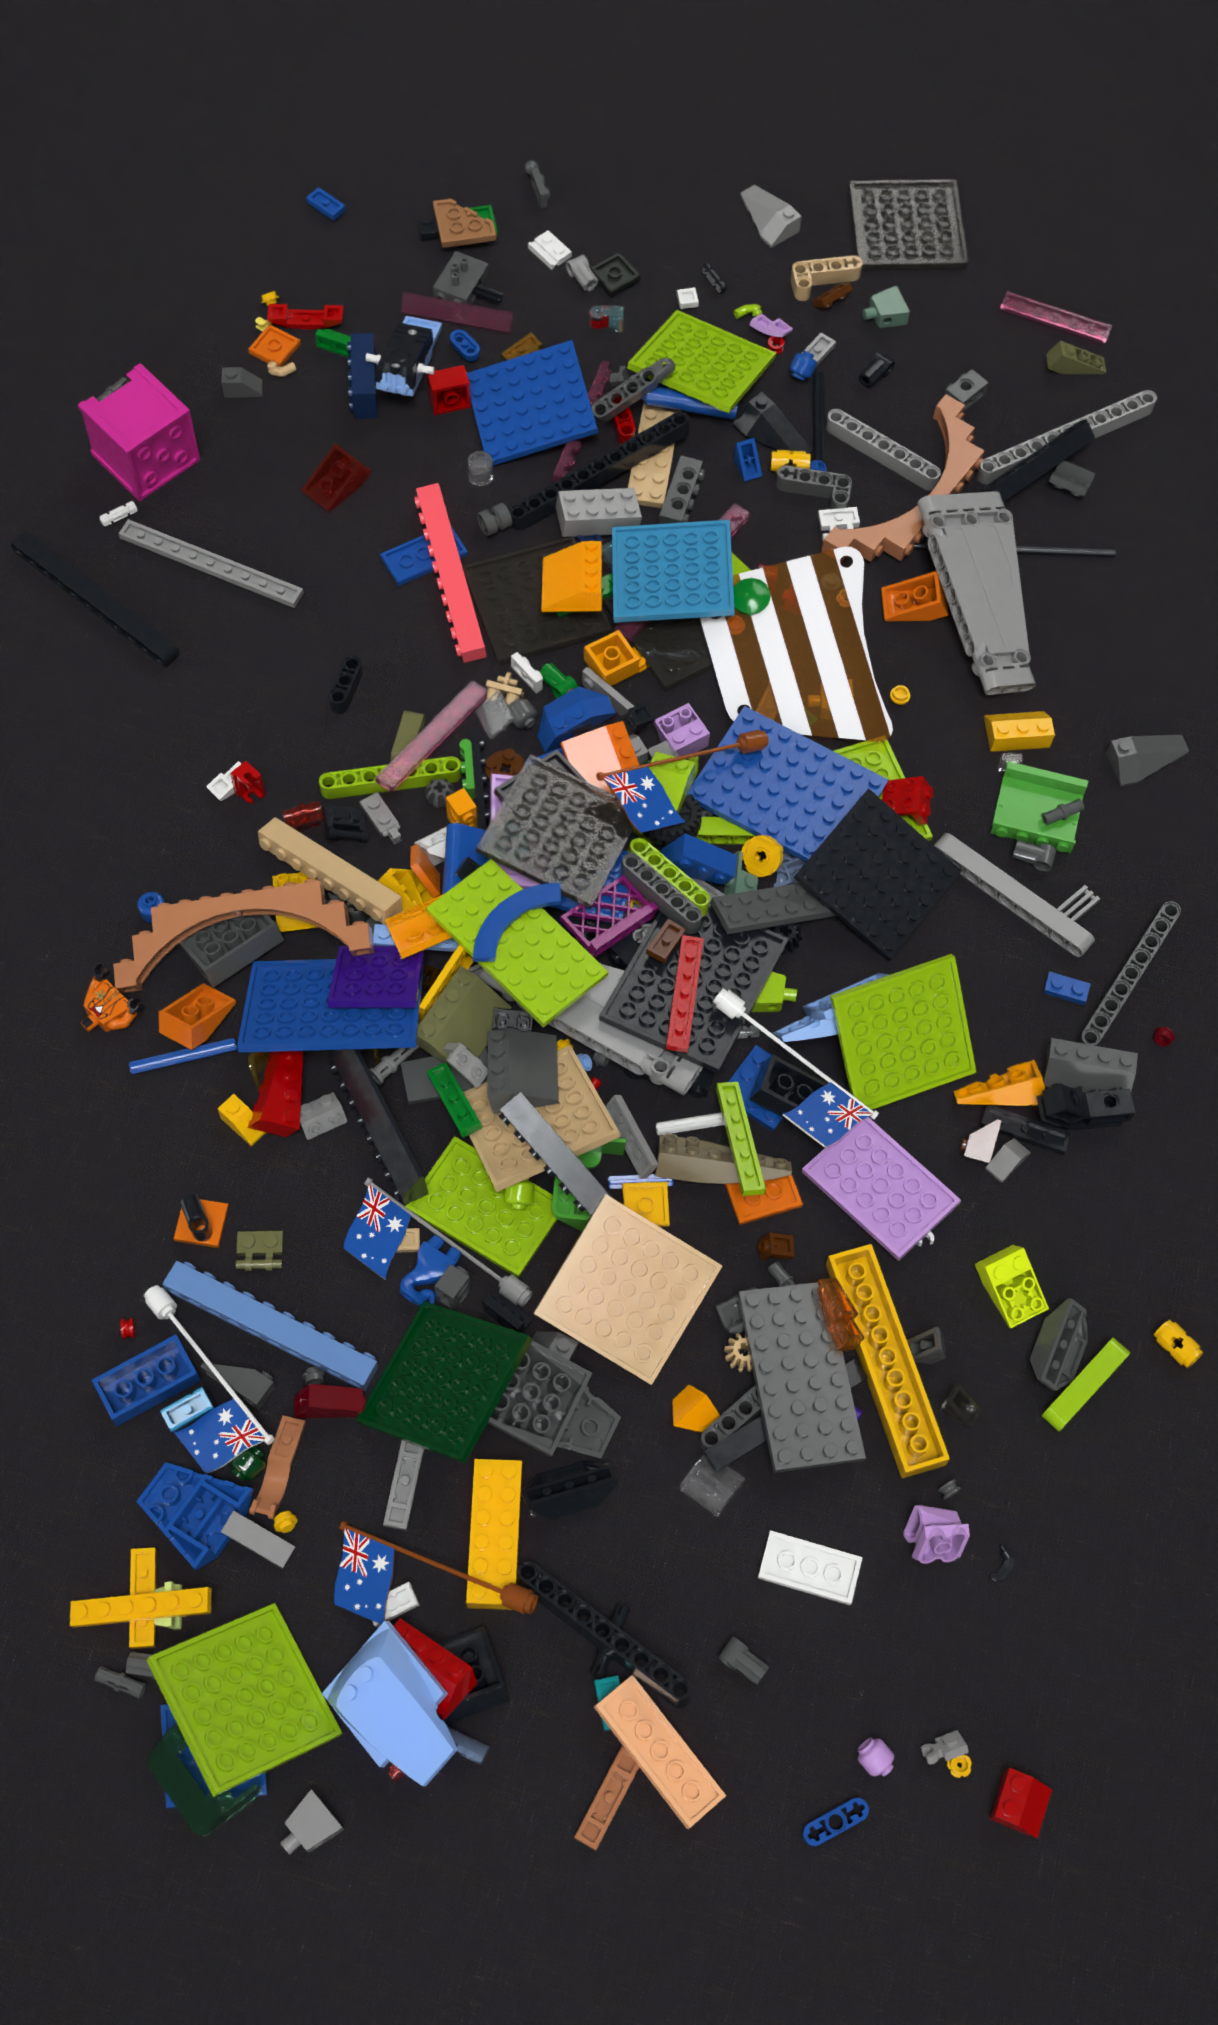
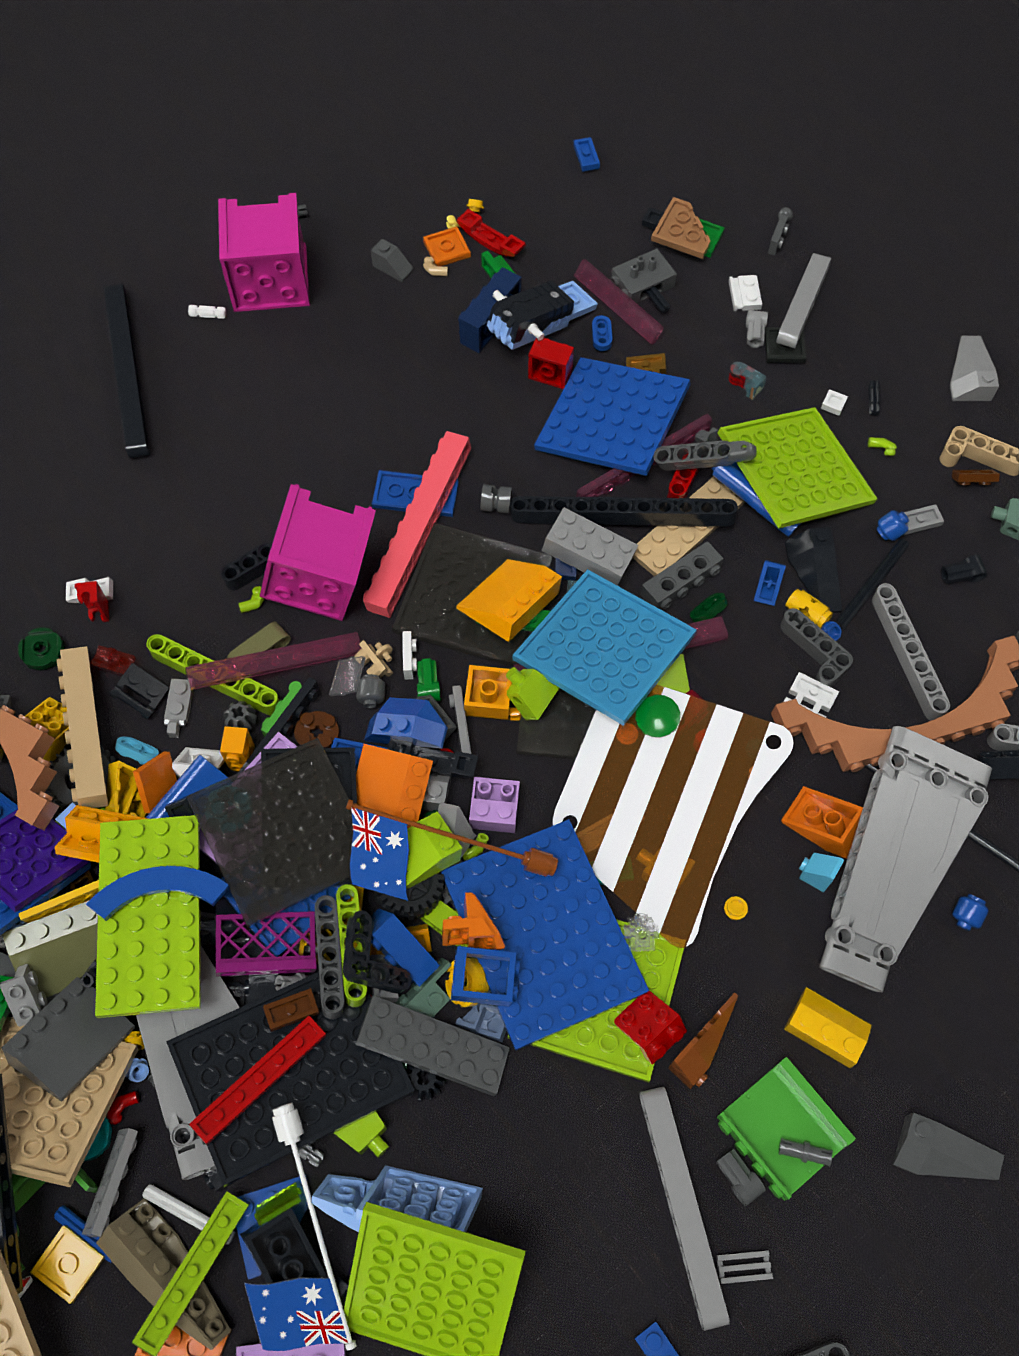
camera: 40 degrees right, 0 degrees up
(211, 563) = (239, 397): light grey plate -> none
(237, 856) = (45, 659): none -> dark green plate
(335, 478) = (398, 383): clear red slope -> none
(371, 708) = (254, 603): none -> lime arm
(374, 867) = (135, 749): none -> medium azure plate
(406, 635) = (316, 555): none -> dark pink container
(480, 468) = (523, 446): clear piece -> none
(604, 229) = (803, 300): none -> light grey beam
(646, 637) = (530, 692): none -> lime torso
(689, 878) = (362, 961): none -> black beam
(718, 503) = (709, 607): none -> dark green plate
(746, 808) = (474, 930): none -> orange piece
(758, 1064) = (277, 1203): none -> clear neon green piece
(763, 847) = (511, 990): none -> blue window
(776, 328) = (890, 472): lavender slope -> none
(776, 340) = (888, 487): red bush -> none
(854, 745) = (644, 940): none -> clear brick
(877, 874) = (559, 1085): black plate -> none
(938, 632) = (820, 870): none -> medium azure slope
(951, 801) = (699, 1053): none -> dark orange wedge
(1012, 757) = (793, 1054): clear plate -> none
(1053, 598) = (970, 912): none -> blue head

